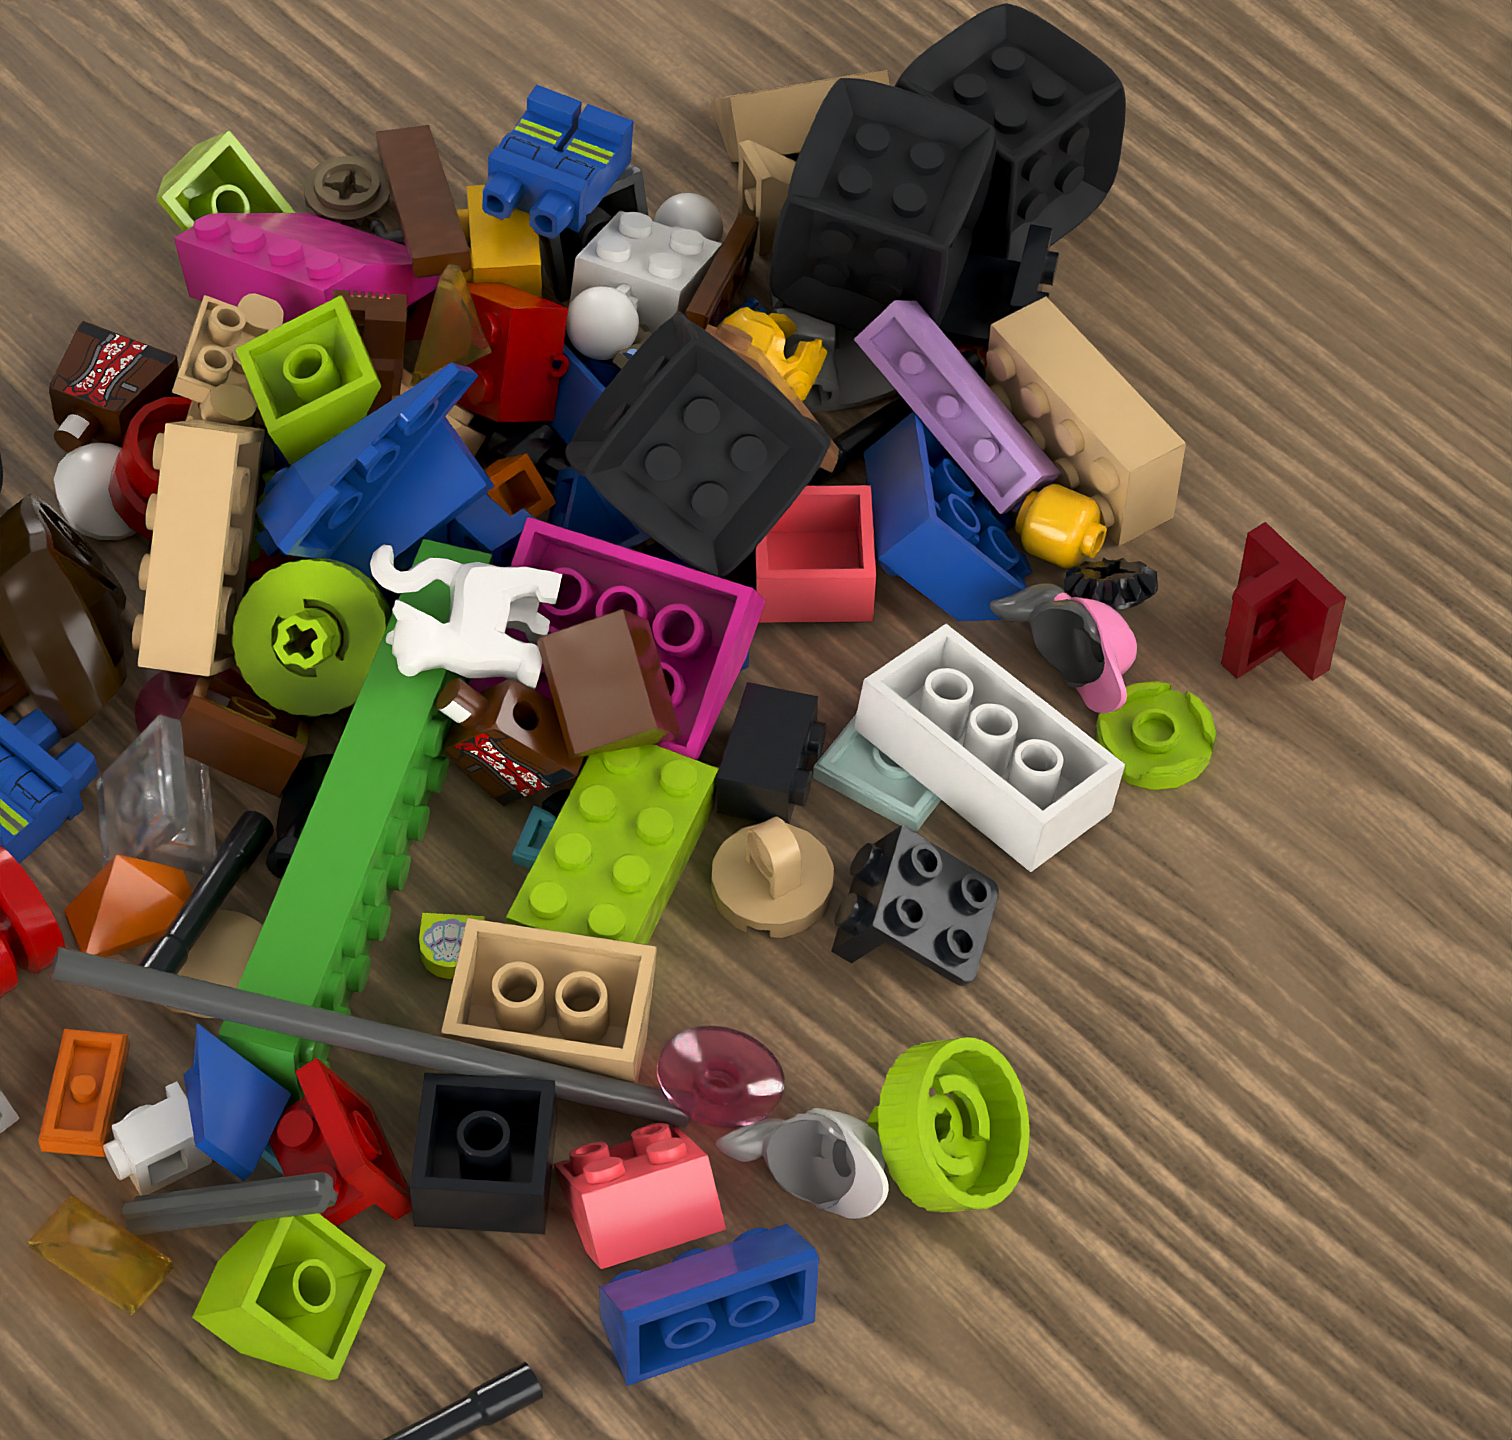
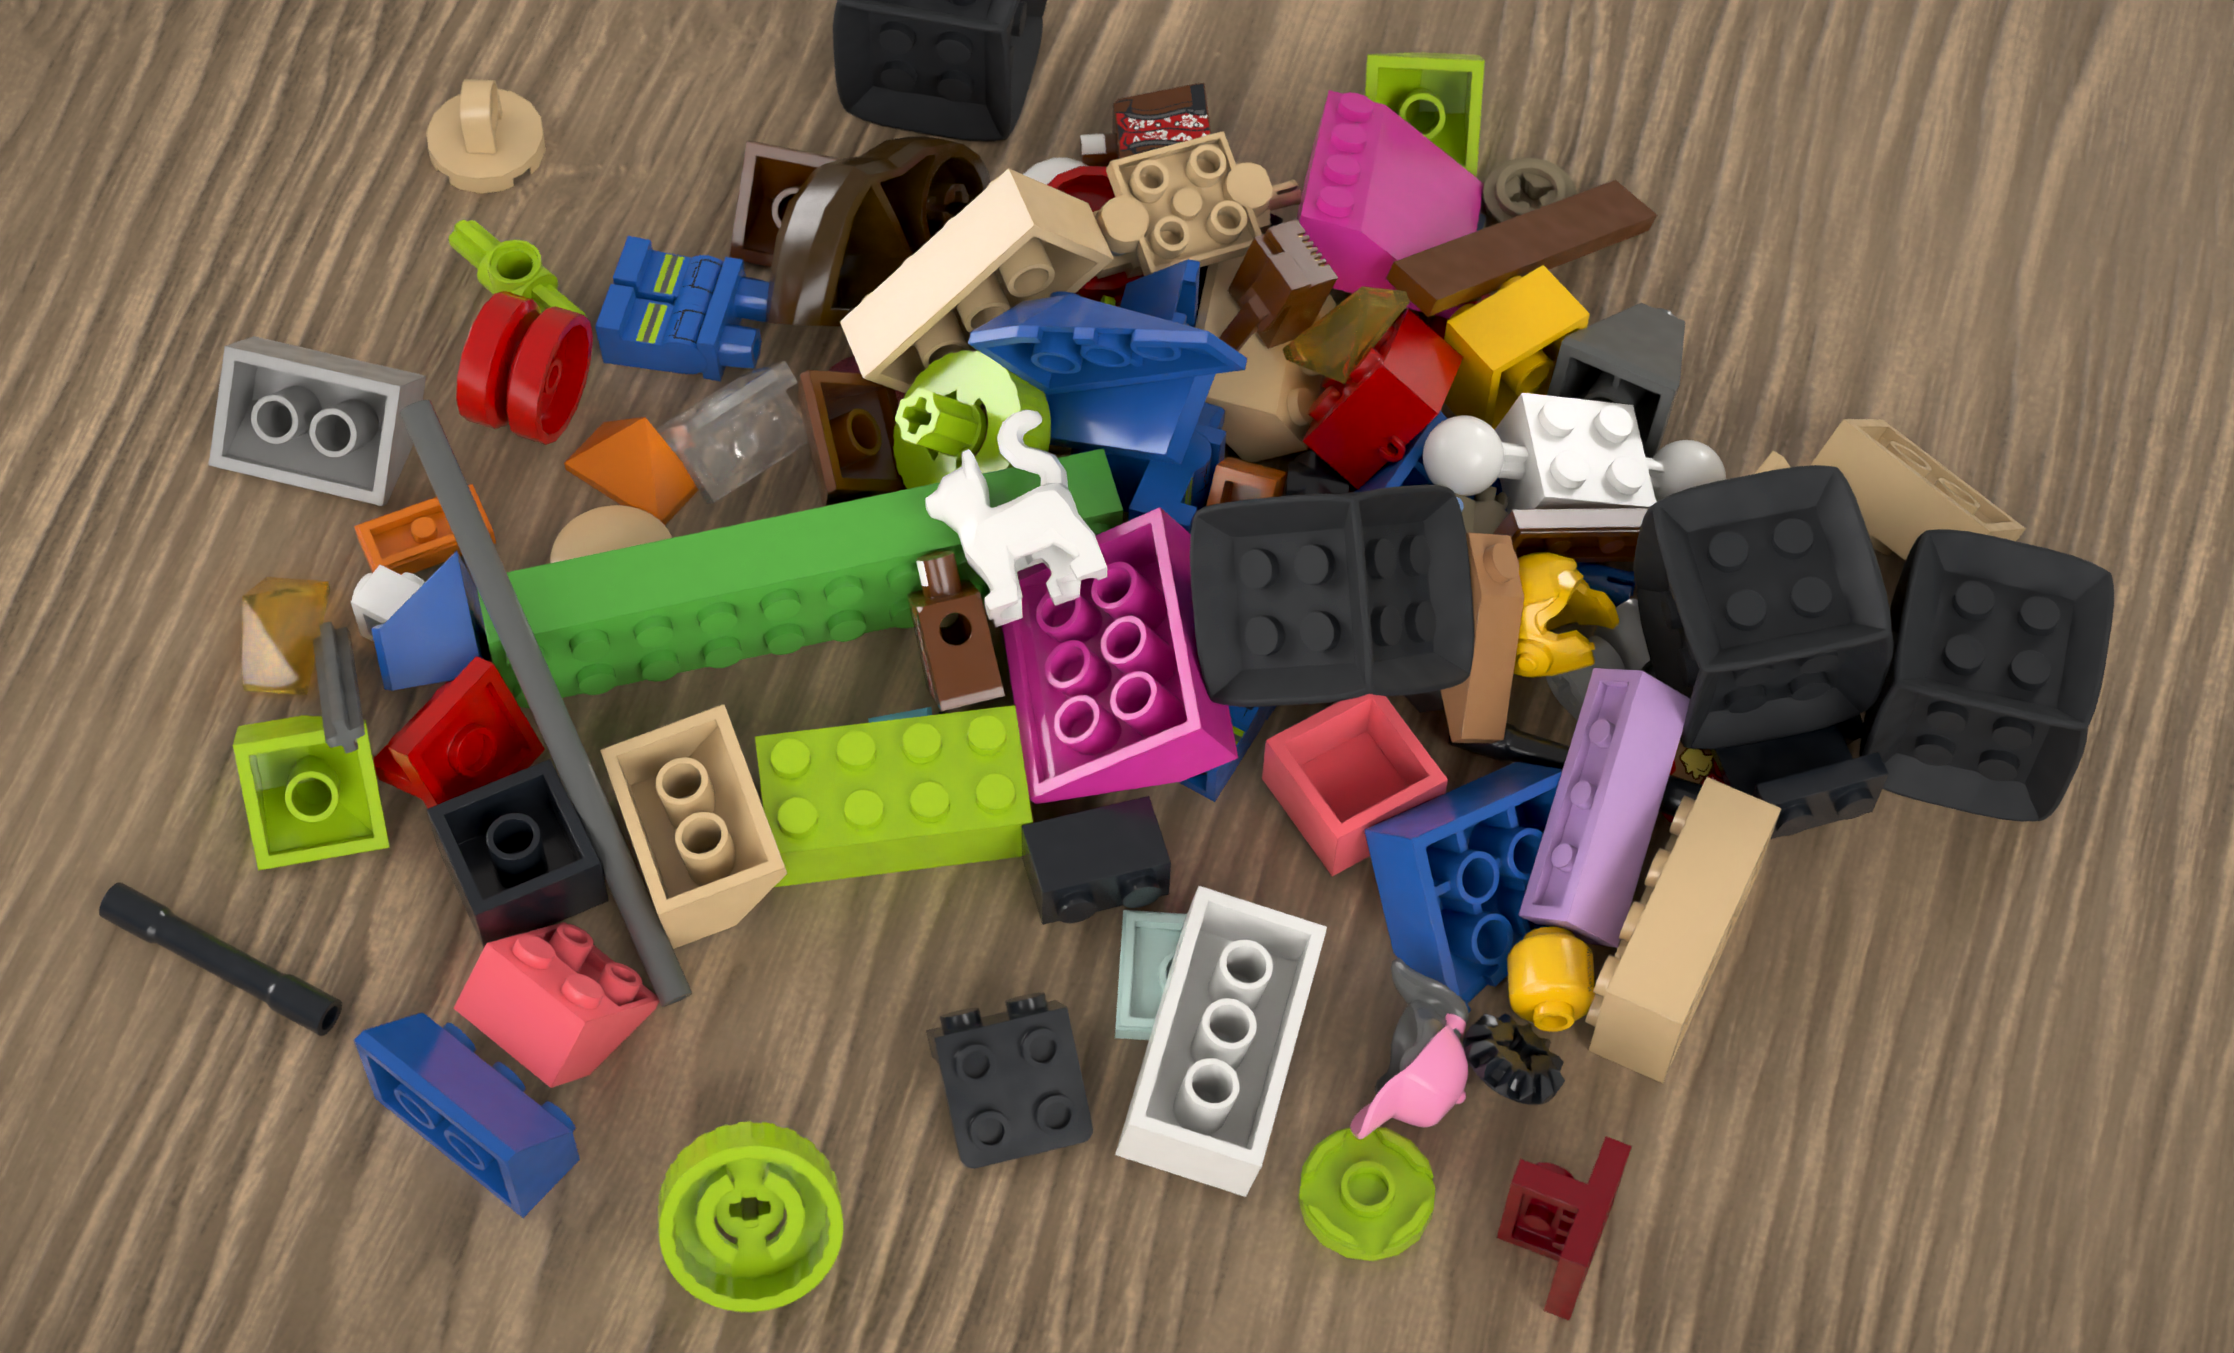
camera: 60 degrees right, 5 degrees up
(232, 860) = (580, 511): black piece -> none
(310, 378) = (1159, 248): lime slope -> none
(441, 941) = (749, 715): tile -> none
(557, 162) = (1605, 314): blue hips -> none
(608, 685) = (1029, 678): reddish brown slope -> none
(720, 1076) = (722, 976): clear pink dish -> none
(772, 878) = (976, 941): tan tile -> none
(818, 1159) = (671, 1113): light grey hair -> none

